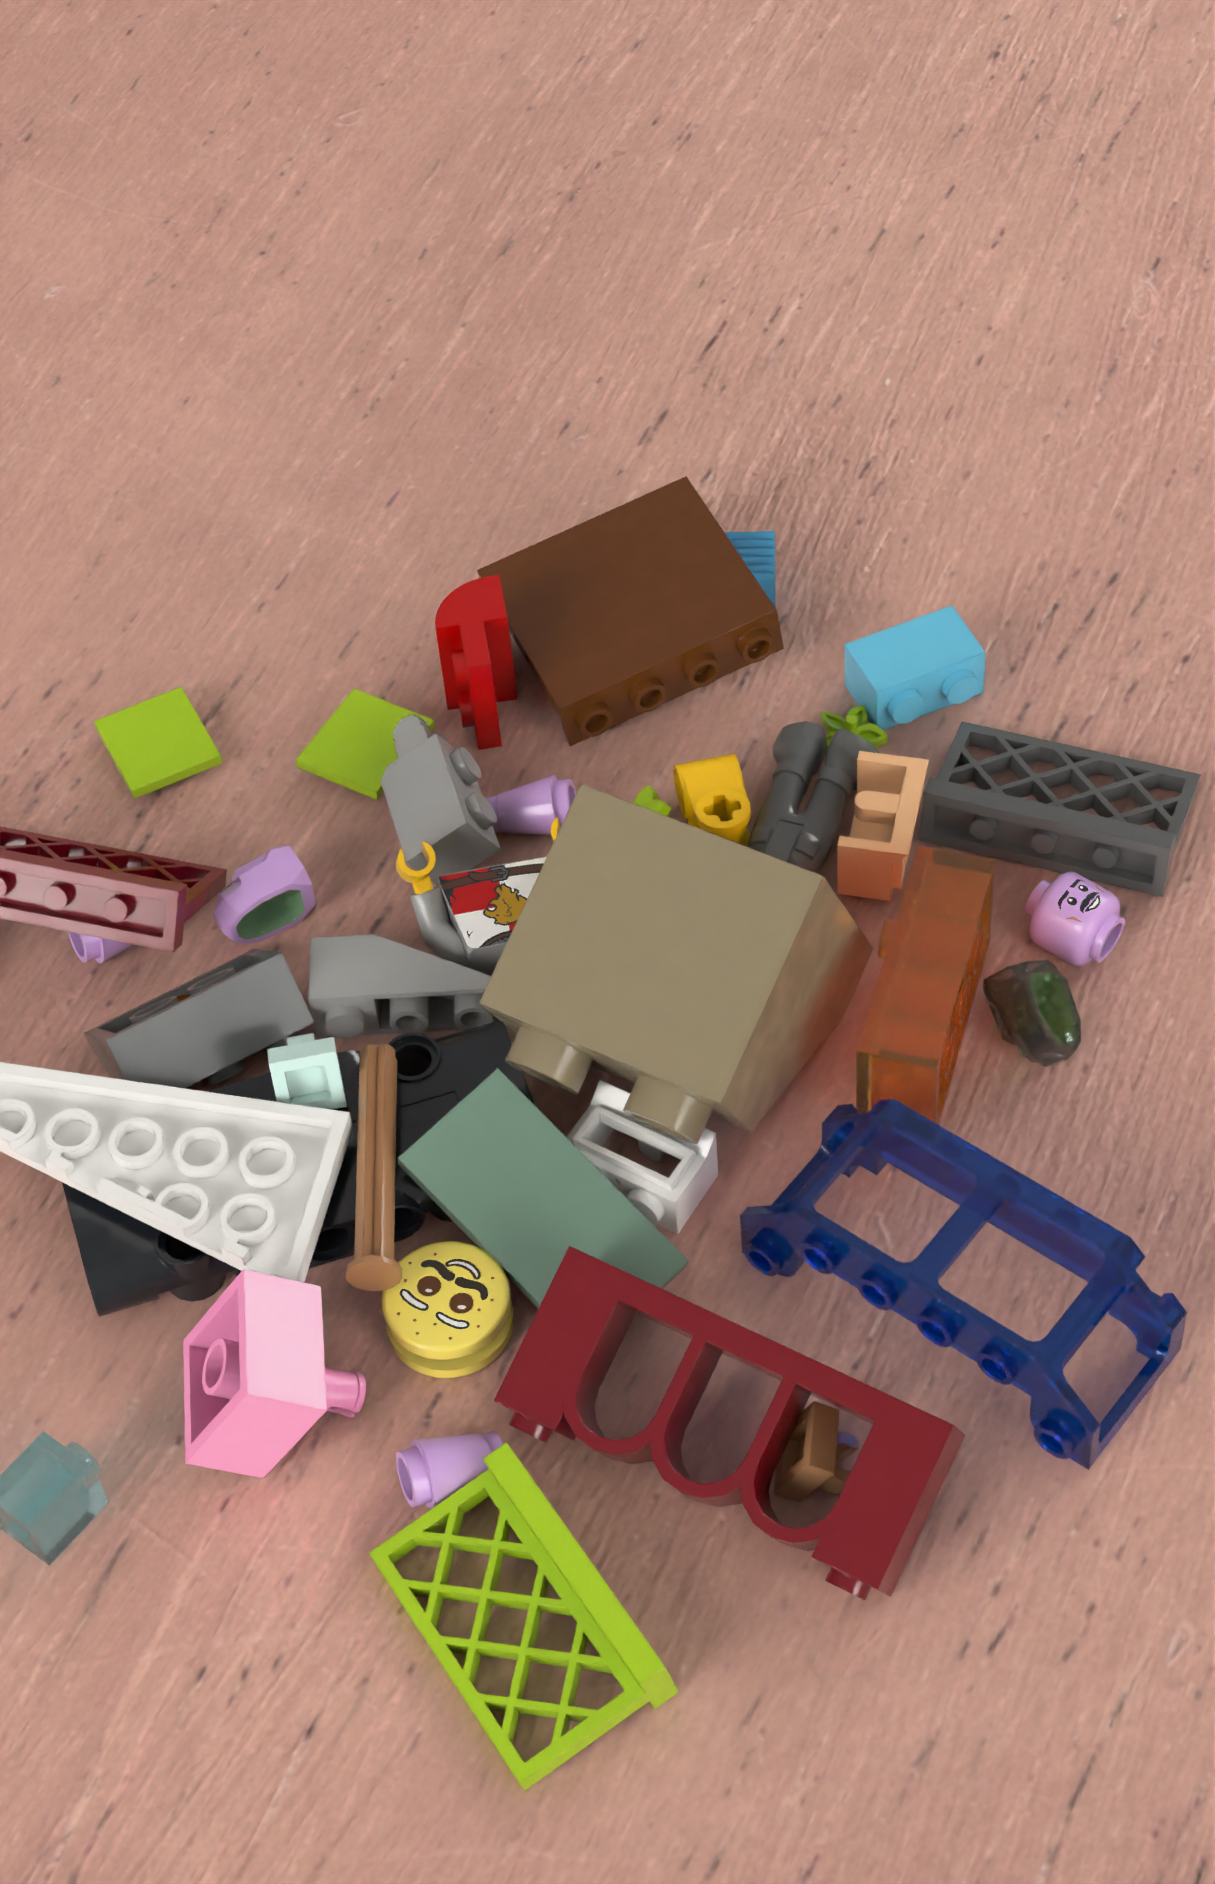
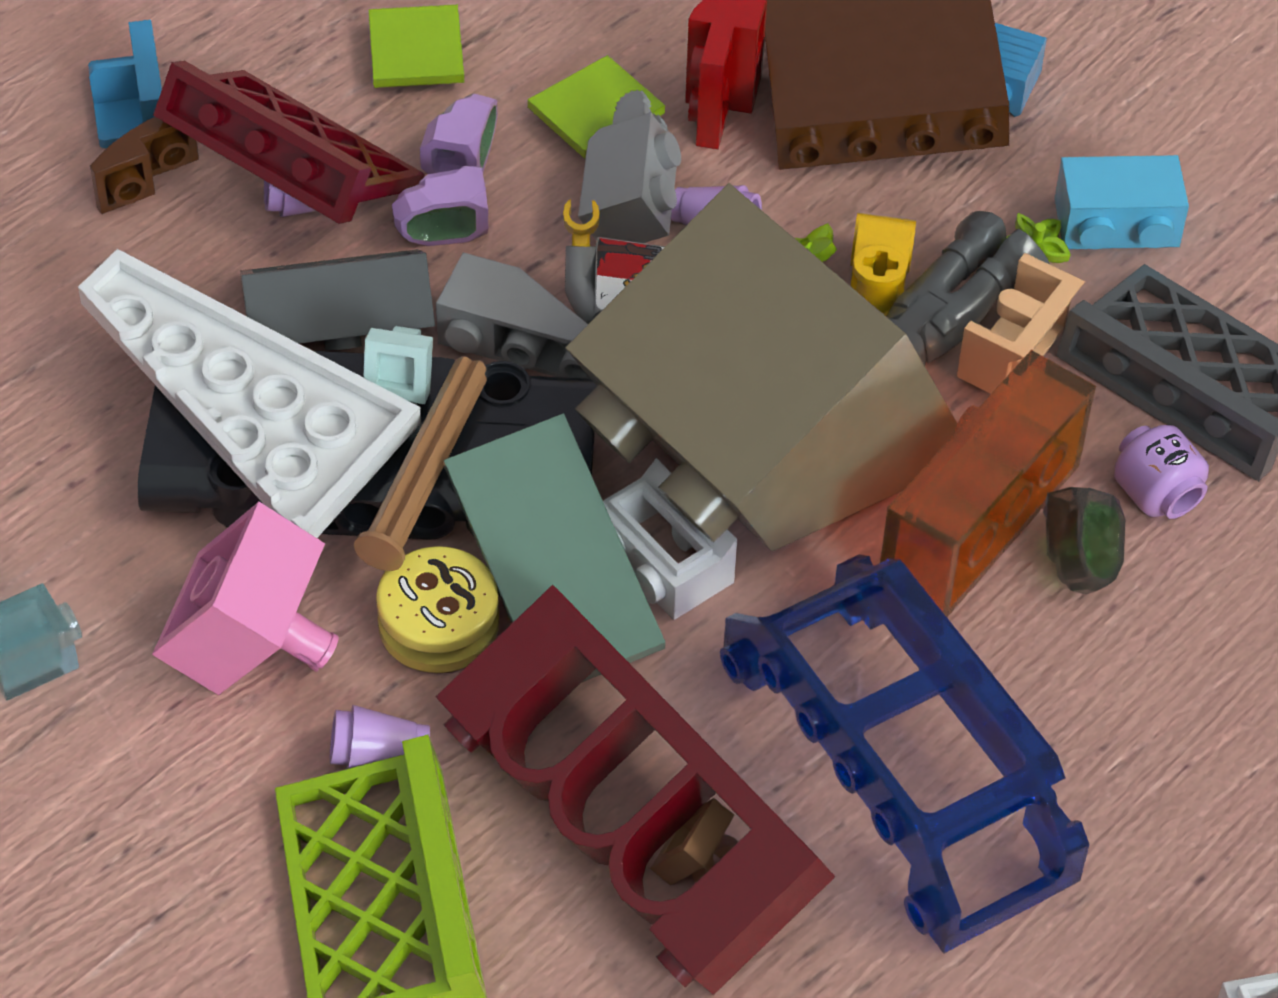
camera: 15 degrees right, 0 degrees up
(246, 820) = (460, 135): none -> lavender rock

